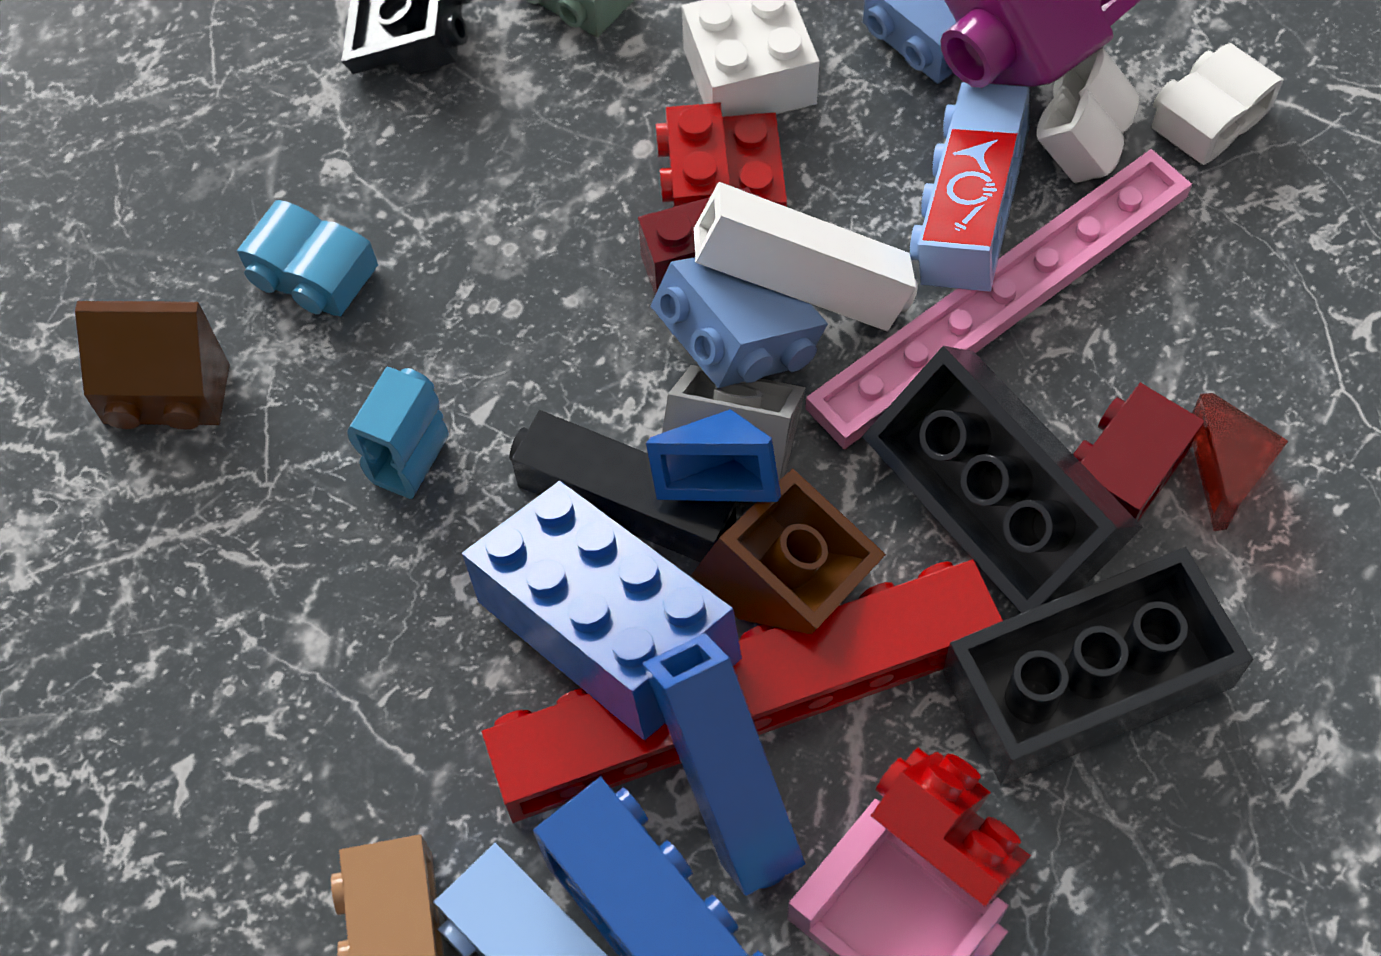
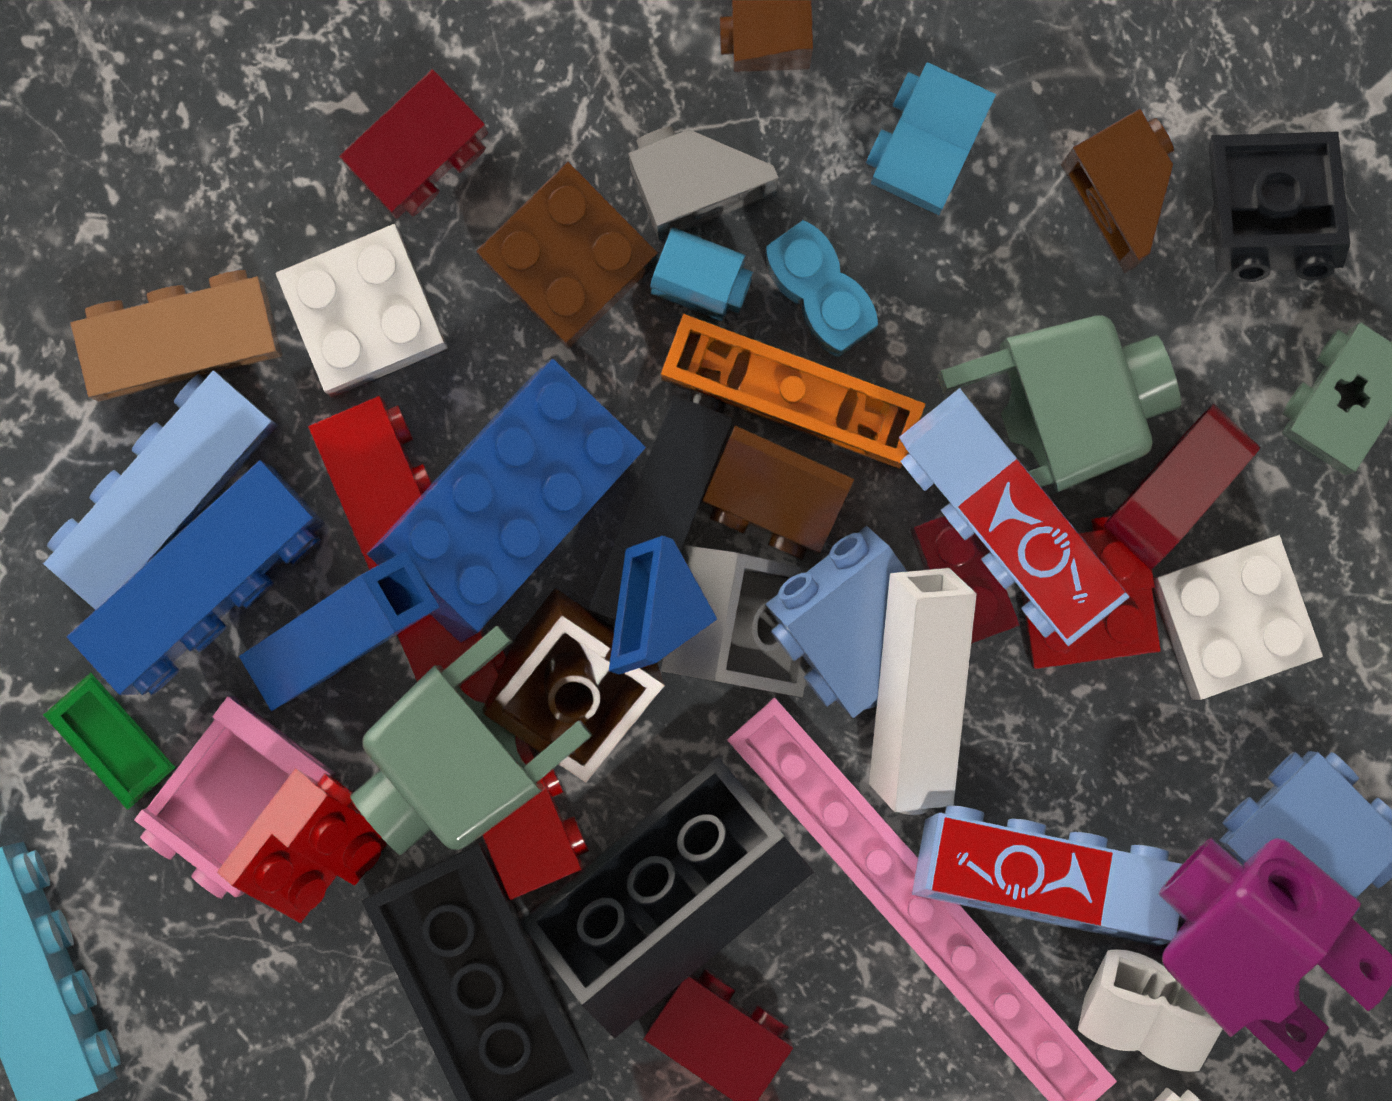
camera: 85 degrees right, 25 degrees up
(233, 697) = (416, 146): none -> dark red brick
(305, 434) = (695, 179): none -> light grey slope
(366, 556) = (568, 255): none -> reddish brown brick
(376, 104) = (1124, 183): none -> reddish brown slope
(391, 754) = (361, 311): none -> white brick
(439, 339) = (809, 274): none -> dark azure brick
(518, 366) = (791, 390): none -> orange brick
(556, 153) = (1077, 397): none -> sand green piece
(612, 371) = (776, 493): none -> reddish brown slope
(636, 77) = (1182, 486): none -> dark red beam
(648, 169) = (1012, 517): none -> brick
(865, 649) = (449, 762): none -> sand green piece

